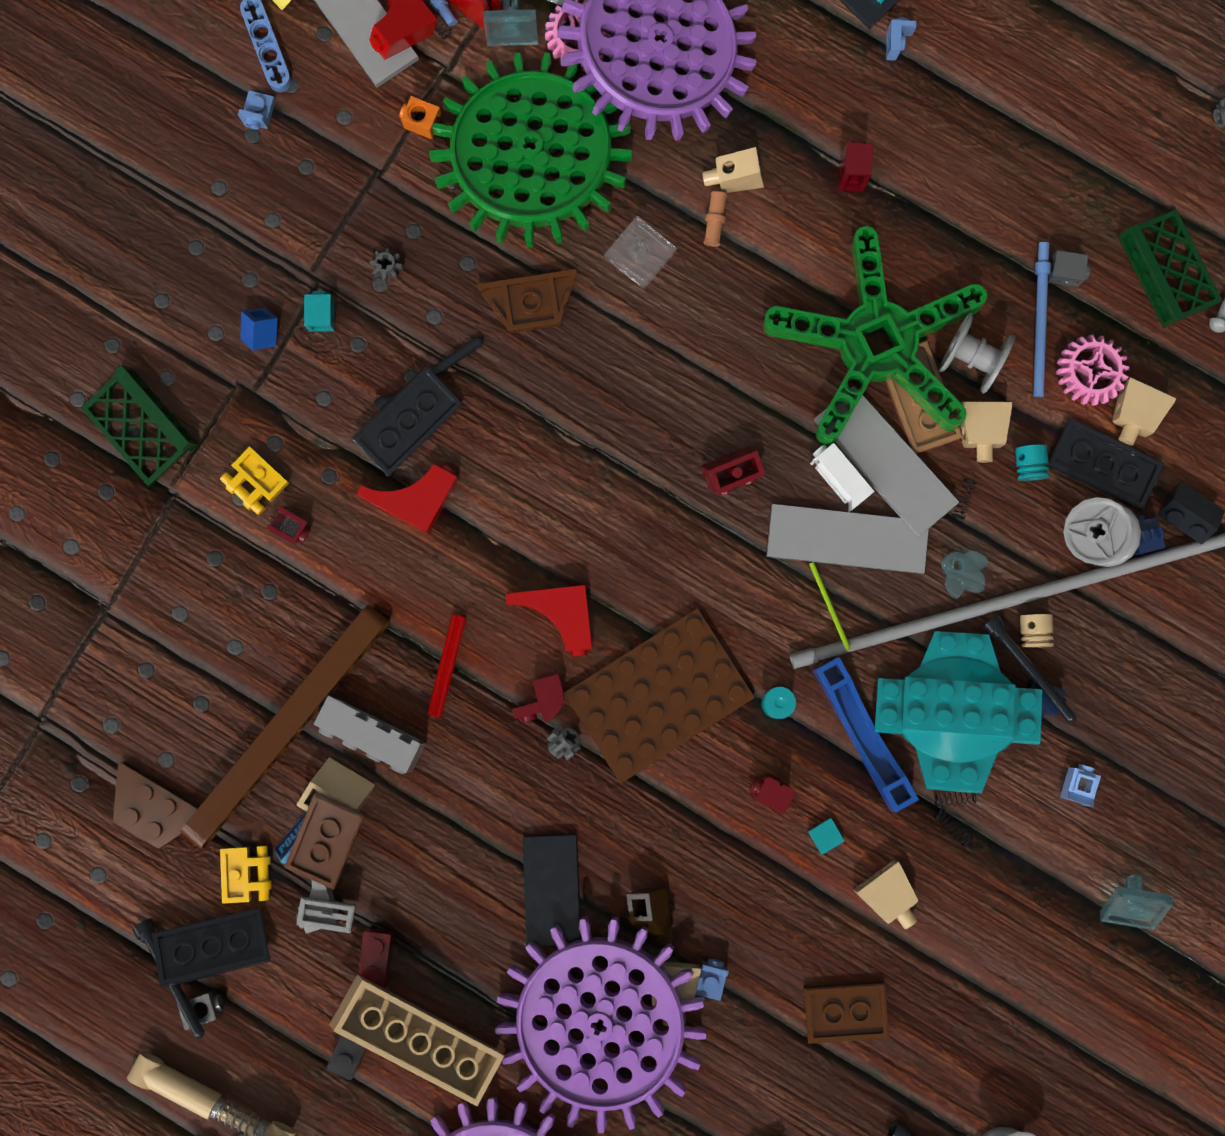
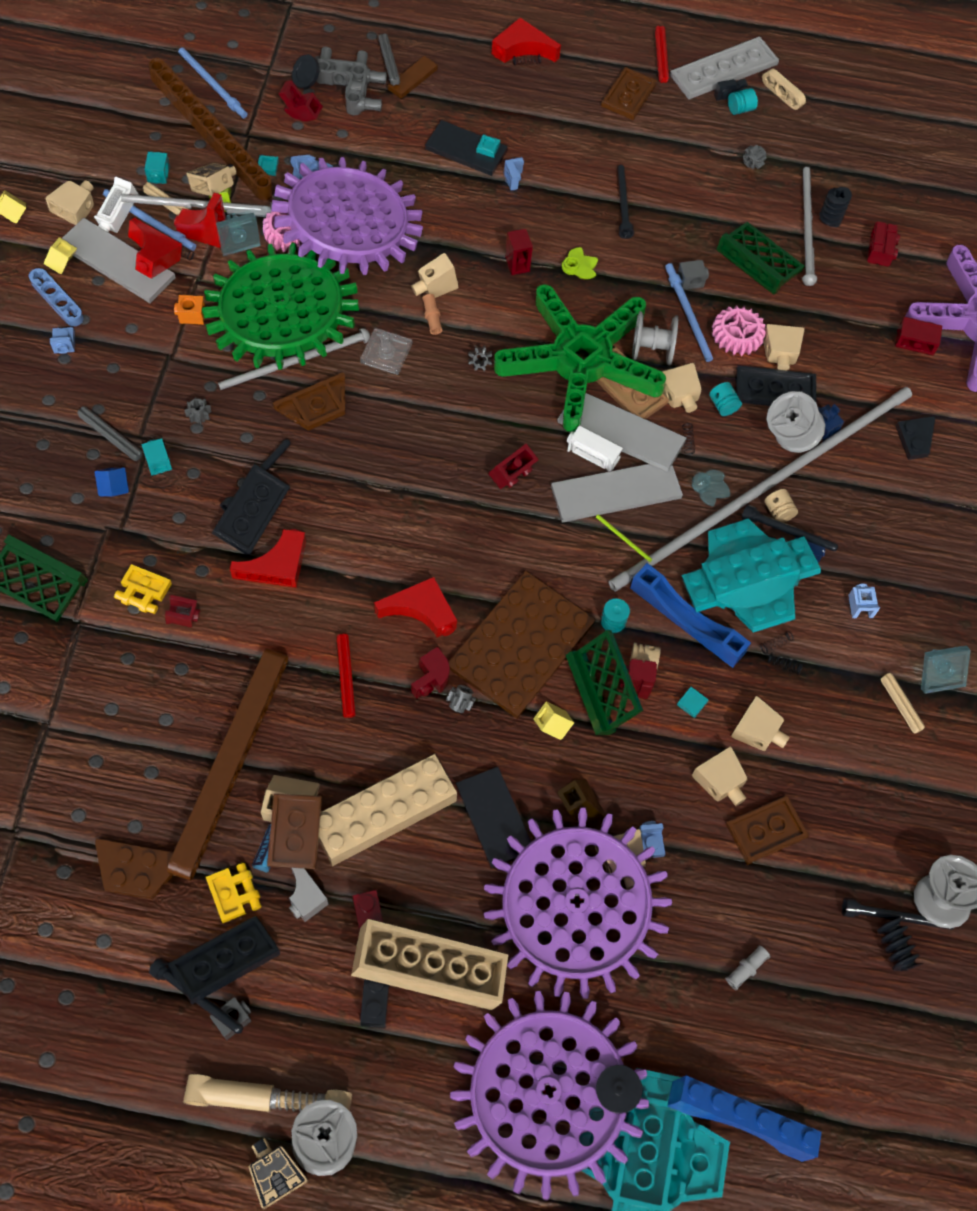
camera: 25 degrees left, 20 degrees down
(275, 260) = (110, 433): none -> dark grey axle
(324, 925) = (316, 902): light grey tile -> none
(369, 734) = (303, 744): light grey wedge -> none
(433, 842) = (385, 809): none -> tan brick
(486, 232) = (363, 336): none -> light grey bar
(658, 803) = (553, 720): none -> light yellow panel
(715, 787) = (592, 691): none -> dark green fence
(750, 303) = (477, 363): none -> dark grey gear
(791, 766) = (646, 653): none -> tan piece
(821, 938) = (722, 777): none -> tan torso
(934, 204) = (581, 265): none -> lime plate
(1012, 169) = (626, 229): none -> black piece
(1068, 923) = (902, 703): none -> tan axle
(1191, 512) = (850, 396): black brick -> none

